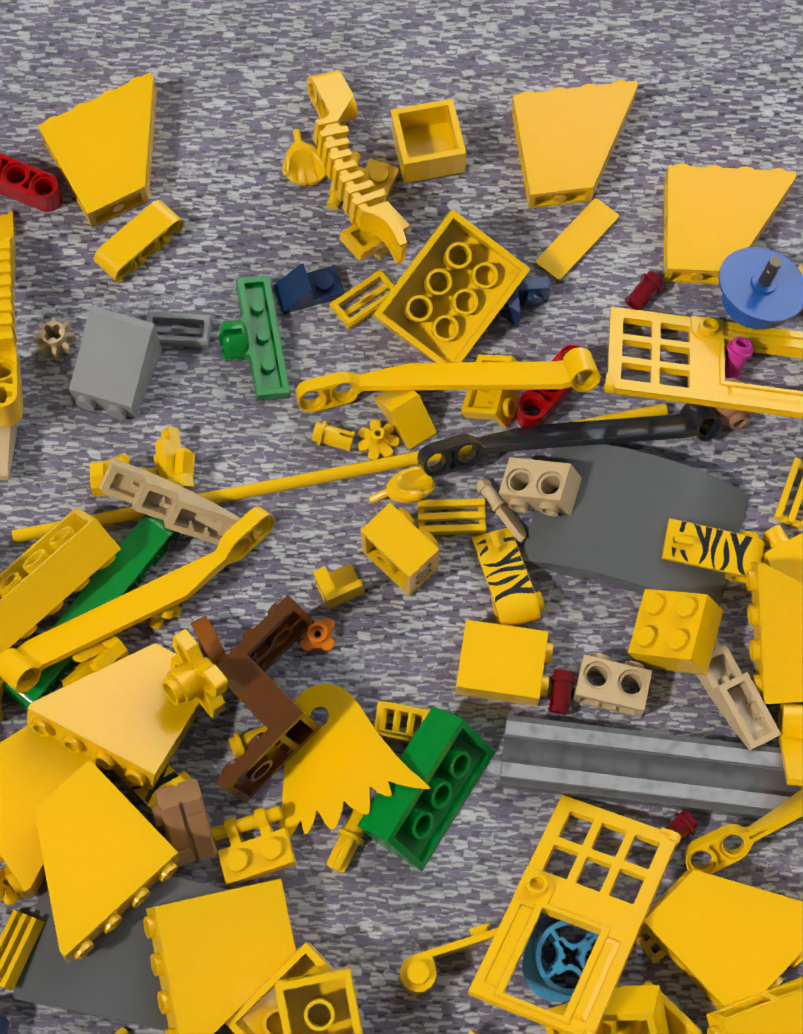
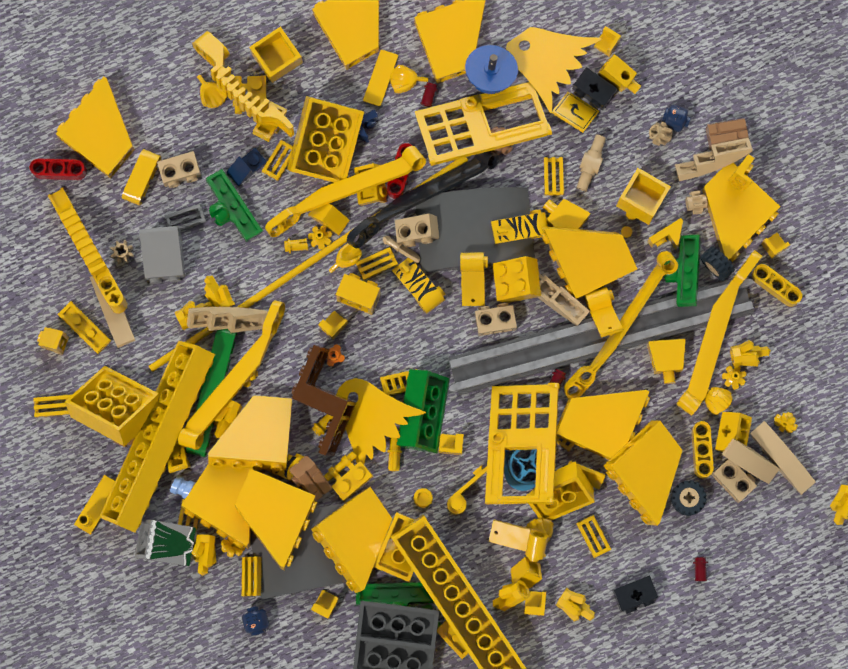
camera: 20 degrees left, 10 degrees up
(194, 676) = (284, 405): yellow plant -> none
(204, 244) = (178, 164): none -> tan brick
(208, 639) = (280, 382): dark orange beam -> none
(365, 938) = (423, 498): none -> yellow tile
(452, 865) = (451, 444): none -> yellow panel
(503, 663) = (435, 331): yellow brick -> none
(561, 691) = (470, 333): dark red pin -> none
(602, 599) = (472, 278): none -> yellow door
(615, 253) = (404, 79): none -> yellow piece
(738, 352) = (492, 112): dark pink pin -> none

